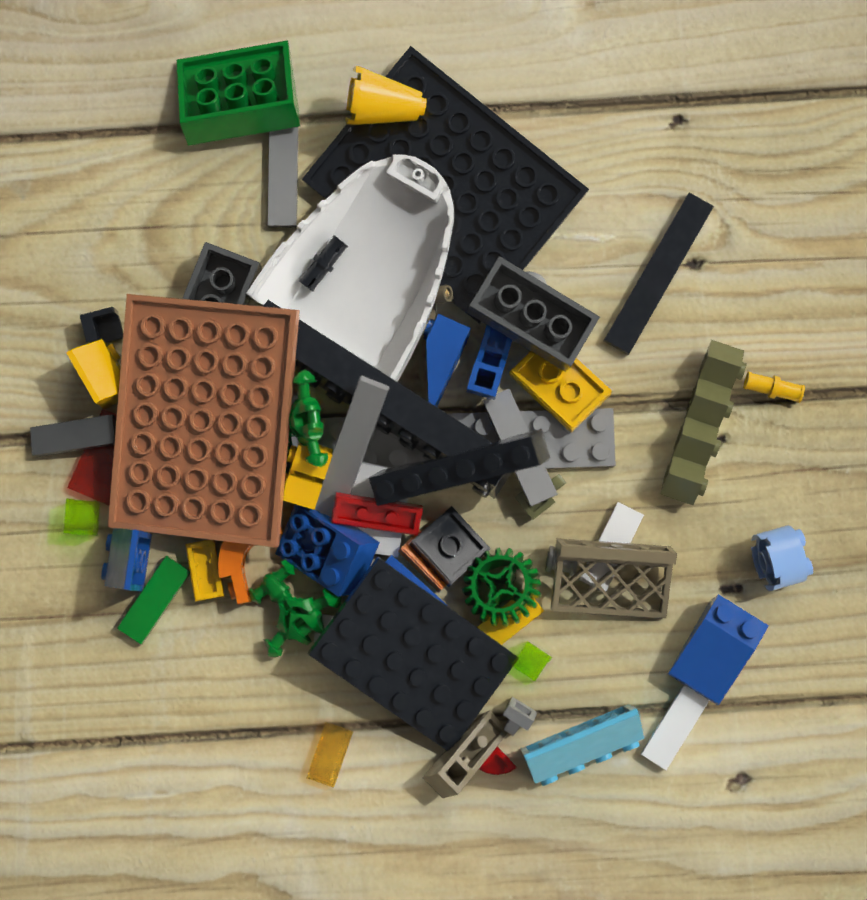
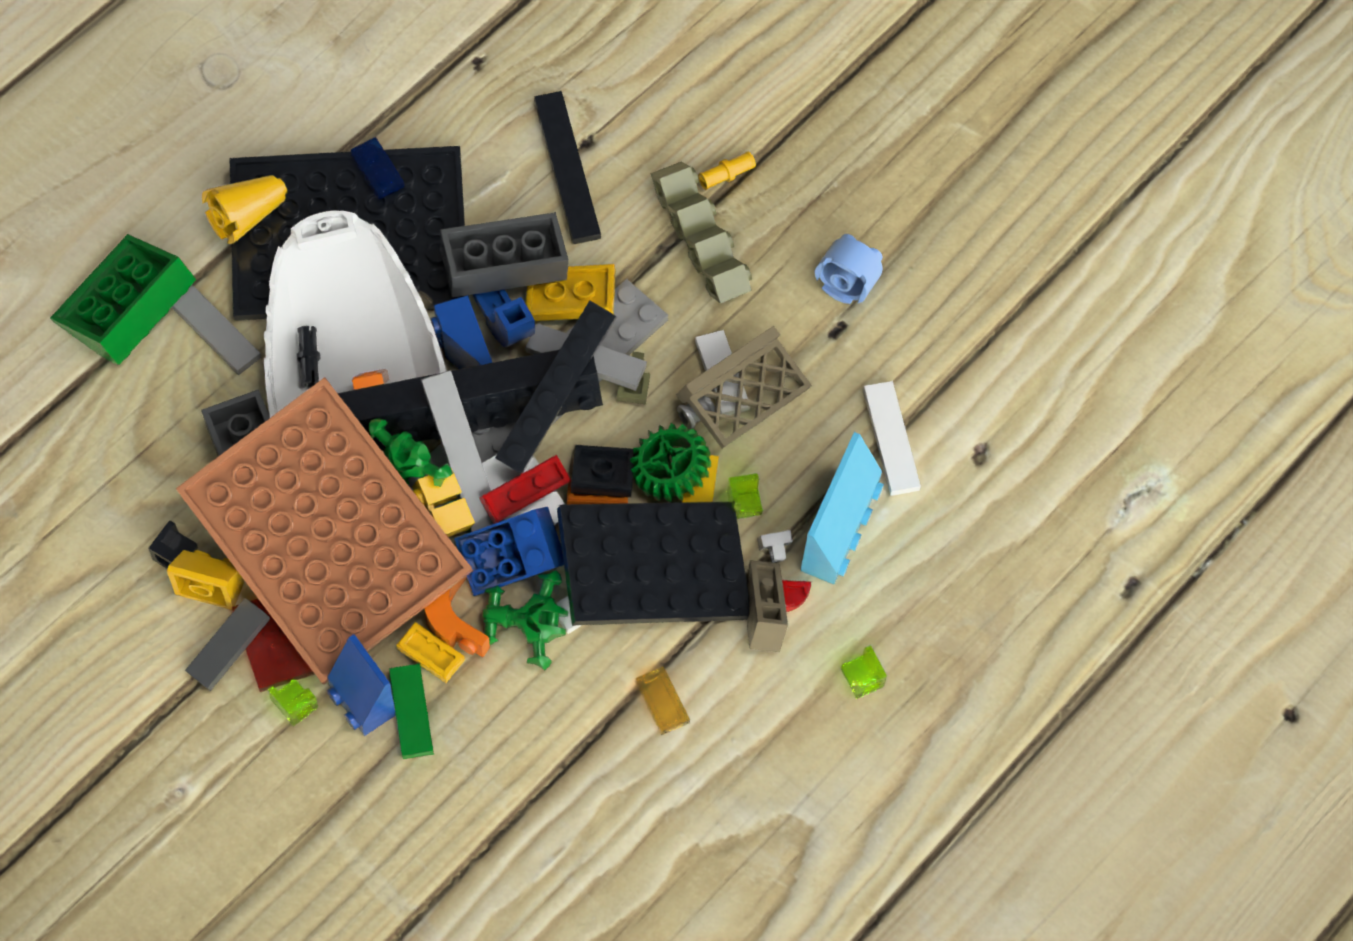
camera: 50 degrees left, 20 degrees down
(344, 328) = (370, 379): none -> orange plate
(486, 869) = (864, 673): none -> clear neon green panel
(509, 153) = (377, 168): none -> clear blue plate
(717, 649) = (869, 367): blue slope -> none

